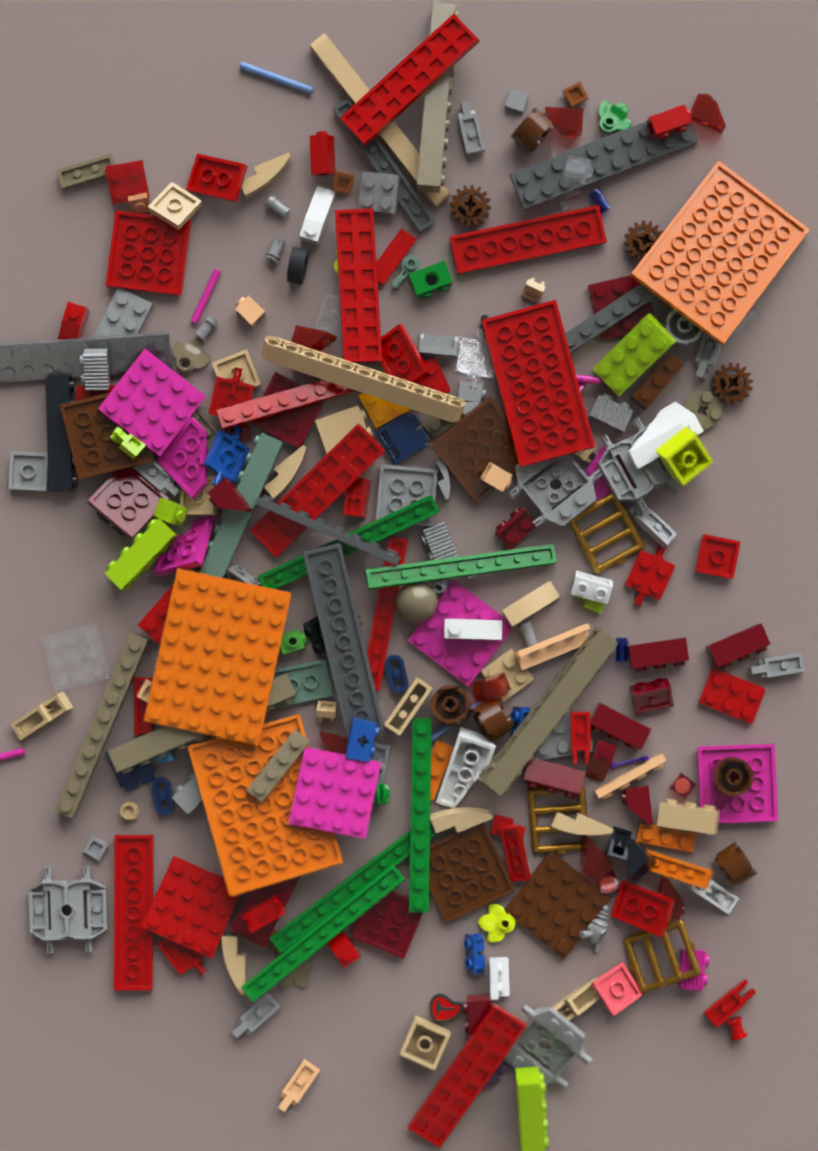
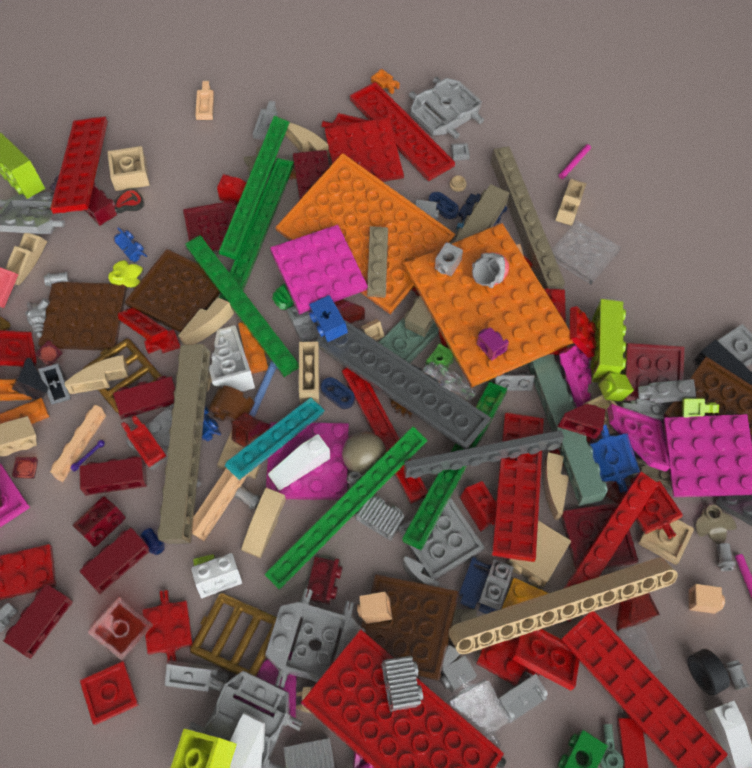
camera: 140 degrees right, 25 degrees down
(102, 989) = (385, 80): none -> orange plate
(134, 474) = (668, 391): none -> light grey hinge
(159, 574) = (582, 332): none -> red plate
(200, 675) = (490, 269): none -> light grey hair
(216, 713) = (451, 253): none -> light grey brick
(251, 612) = (491, 343): none -> magenta brick
(264, 913) = (308, 165): red hinge -> none
(303, 613) = (450, 380): none -> clear plate
(395, 430) = (496, 584): none -> light grey slope
(440, 706) = (264, 396): reddish brown brick -> none
(478, 660) = (274, 438): none -> teal plate
(499, 977) = (99, 238): white bracket -> none
(519, 409) = (401, 683): none -> light grey brick
(559, 960) = (55, 278): none -> light grey pin
(593, 860) = (69, 358): clear red slope -> none
(600, 760) = (113, 441): dark red slope -> none
(638, 801) = (57, 426): dark red slope -> none
(685, 596) = (119, 627): none -> clear red slope

